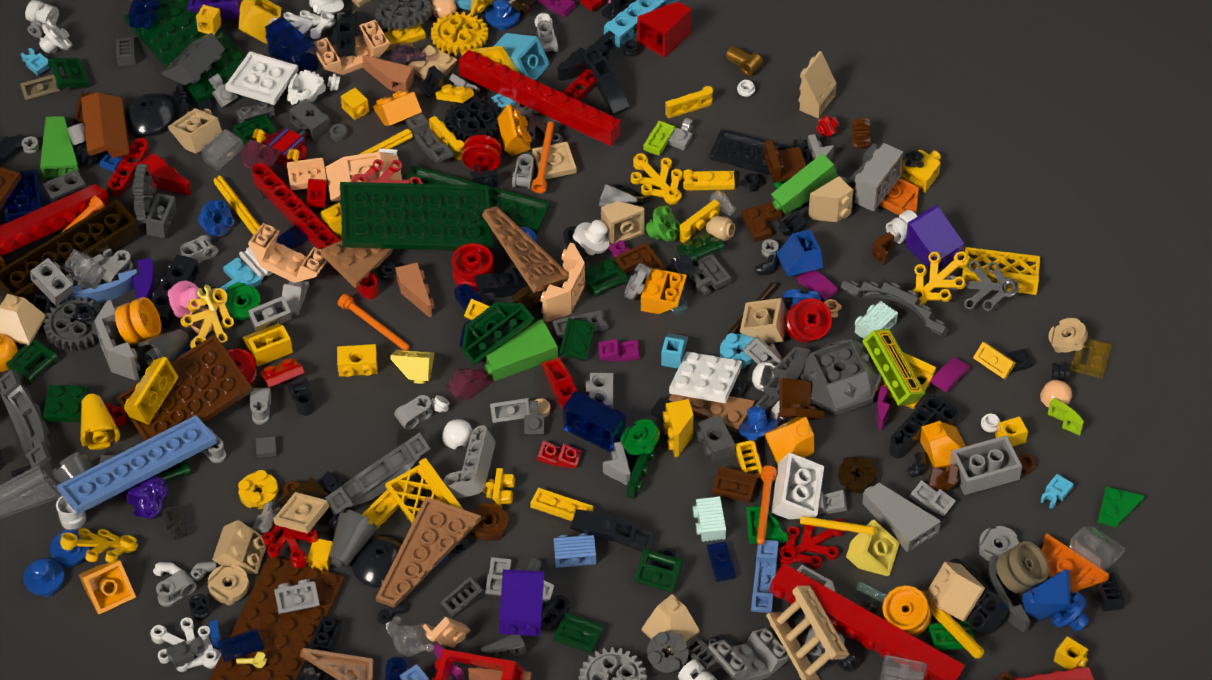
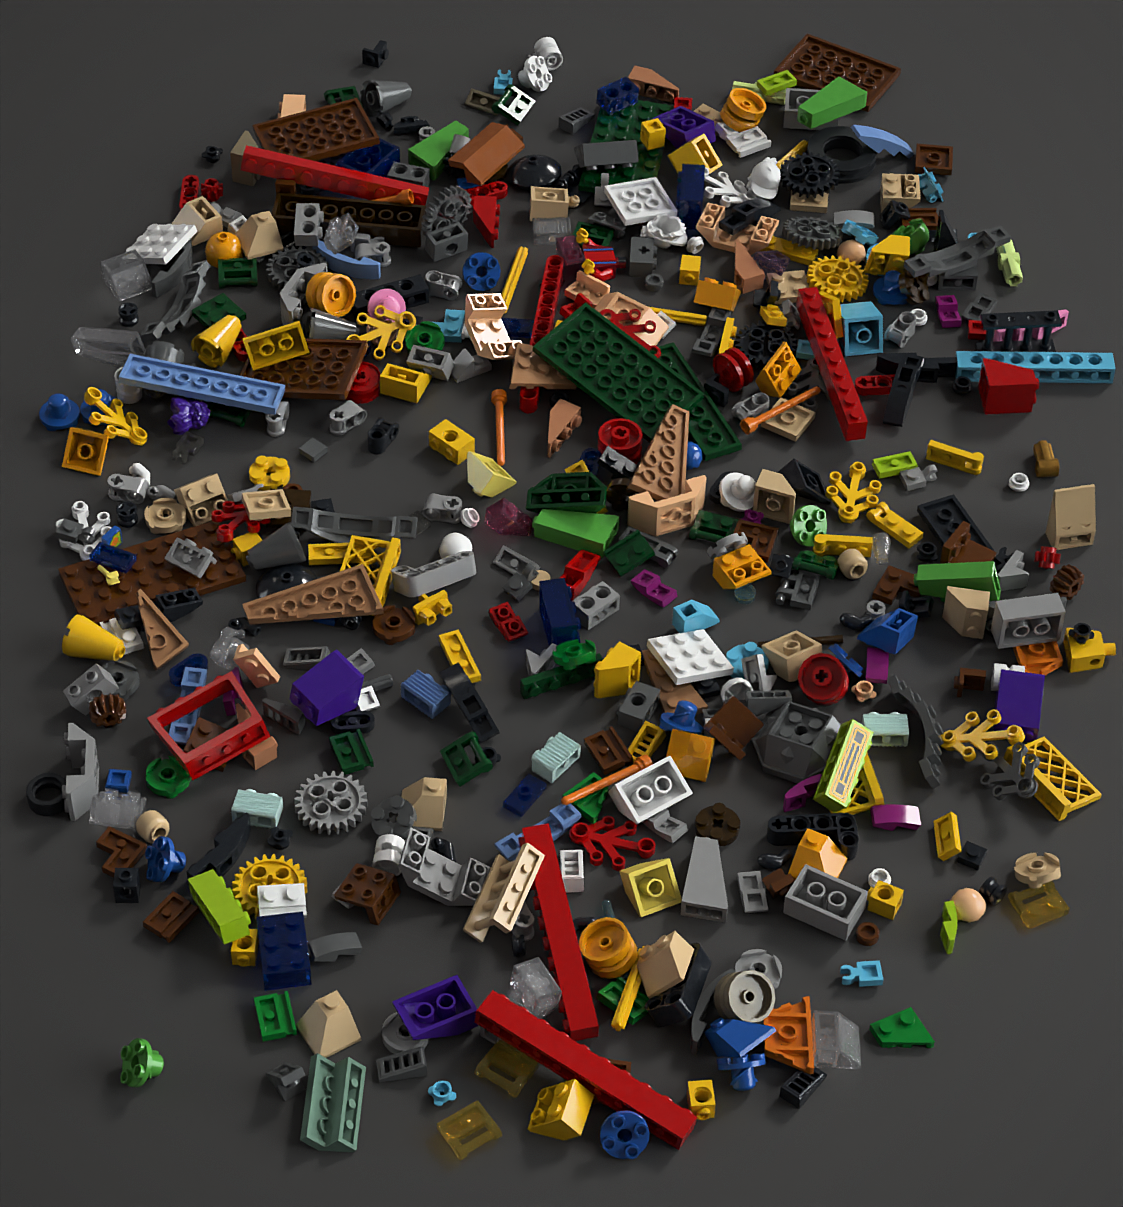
camera: 45 degrees right, 5 degrees down
(145, 282) = (387, 272): dark purple slope -> none
(206, 296) = (395, 307): light yellow hand -> none
(276, 374) = (382, 406): red plate -> none
(838, 525) = (640, 842): yellow bar -> none

